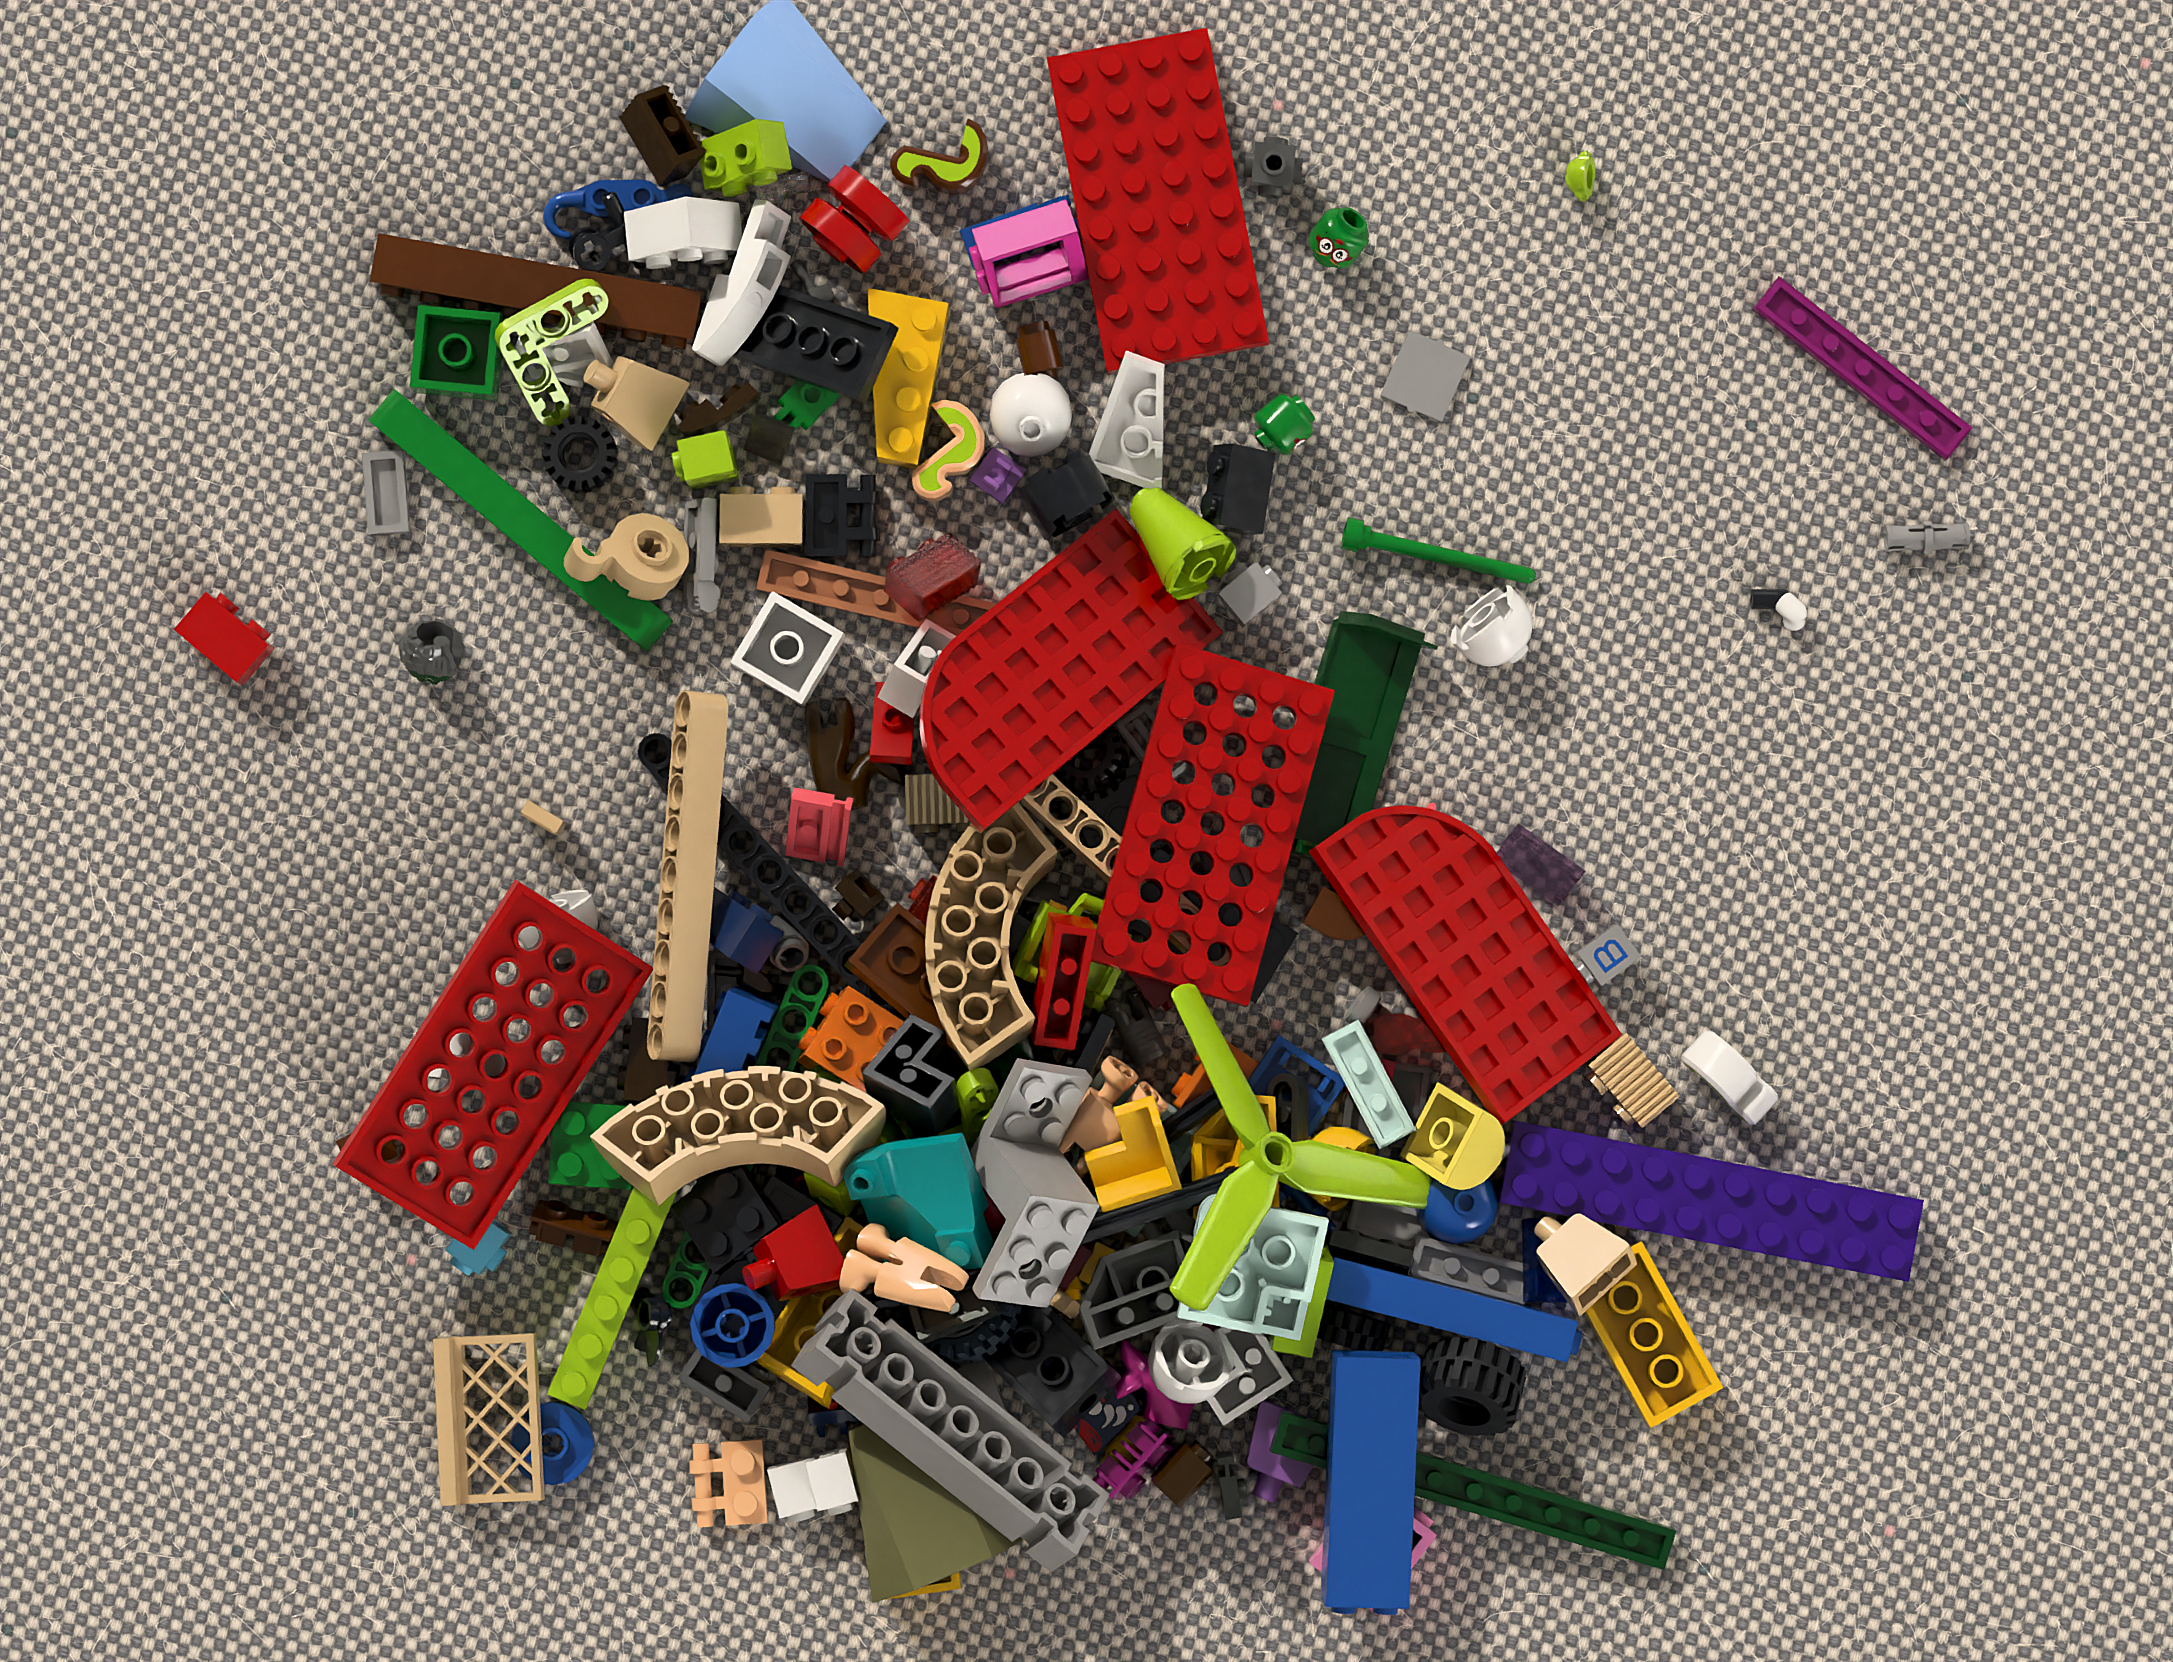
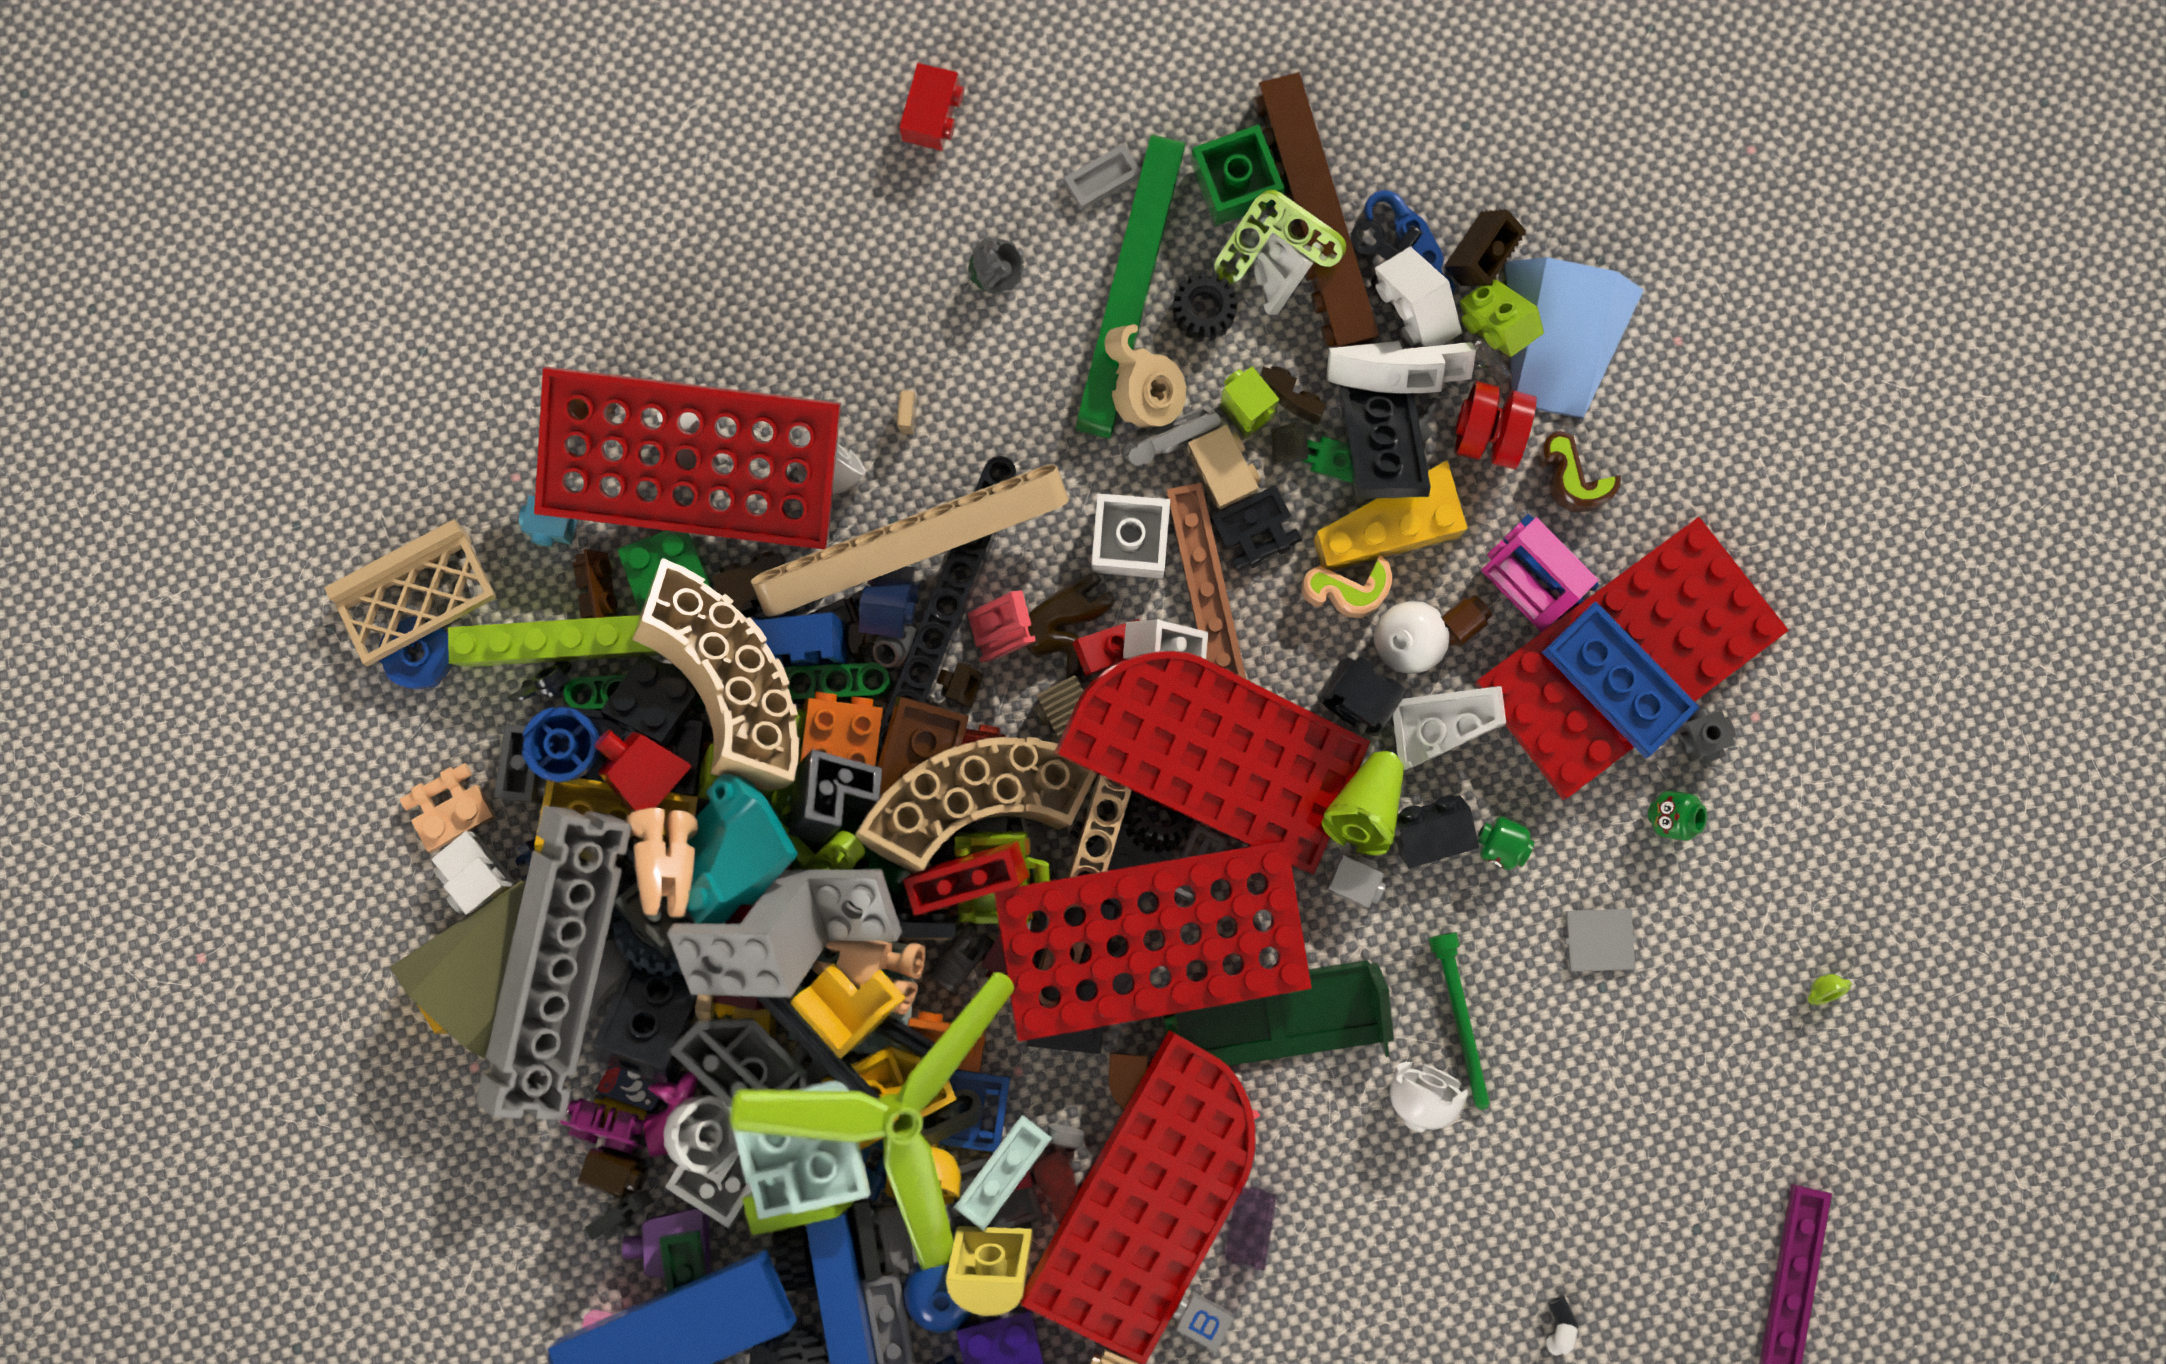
camera: 65 degrees right, 5 degrees down
(635, 398) = (1269, 324): tan torso -> none
(932, 576) = (1244, 620): clear red brick -> none
(998, 475) = (1349, 636): medium lavender tile -> none
(1176, 227) = (1621, 679): none -> blue tile

